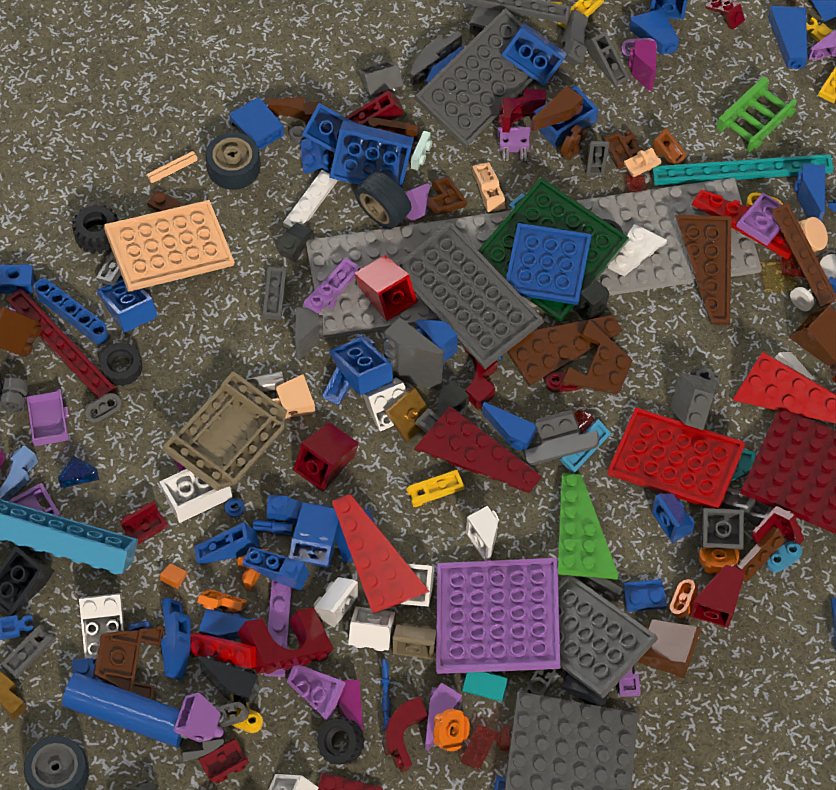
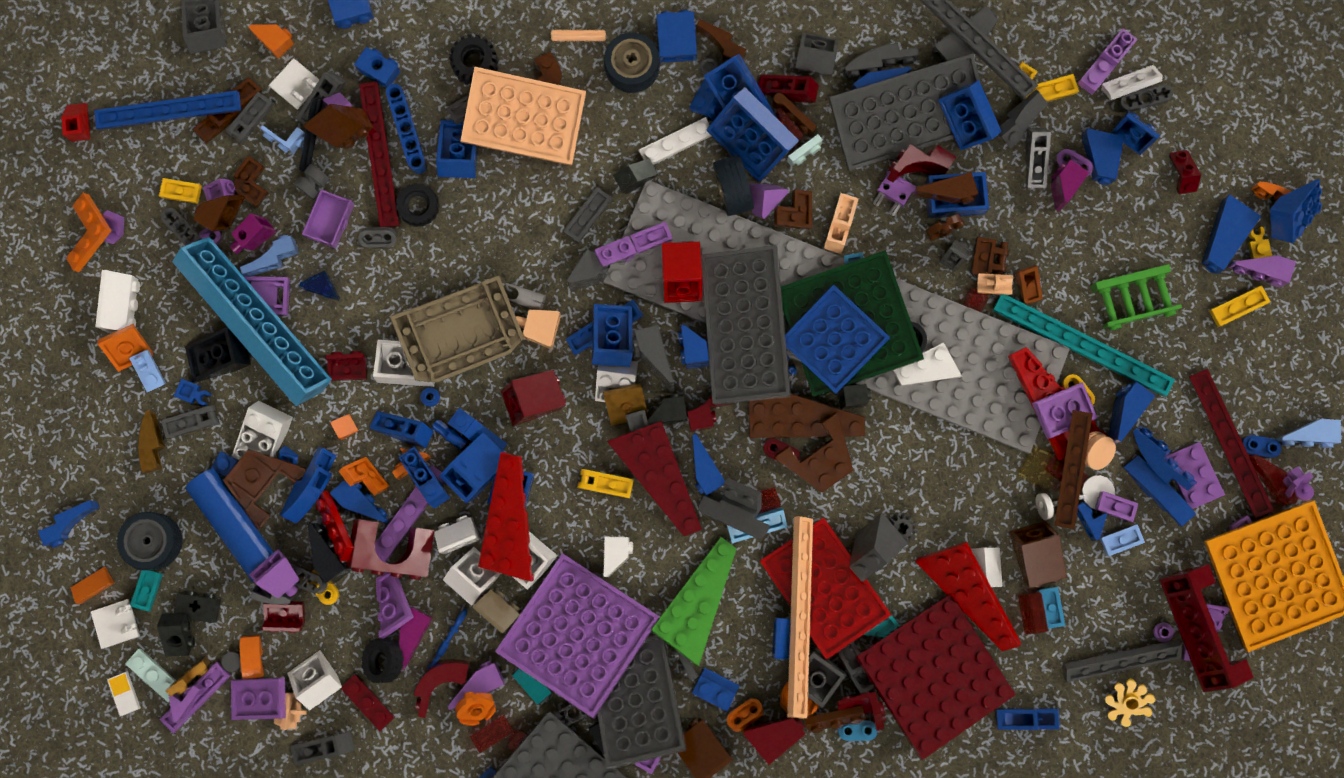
camera: 35 degrees right, 20 degrees up
(676, 491) = (800, 617): none -> light nougat plate
(709, 253) = (990, 413): reddish brown wing -> none

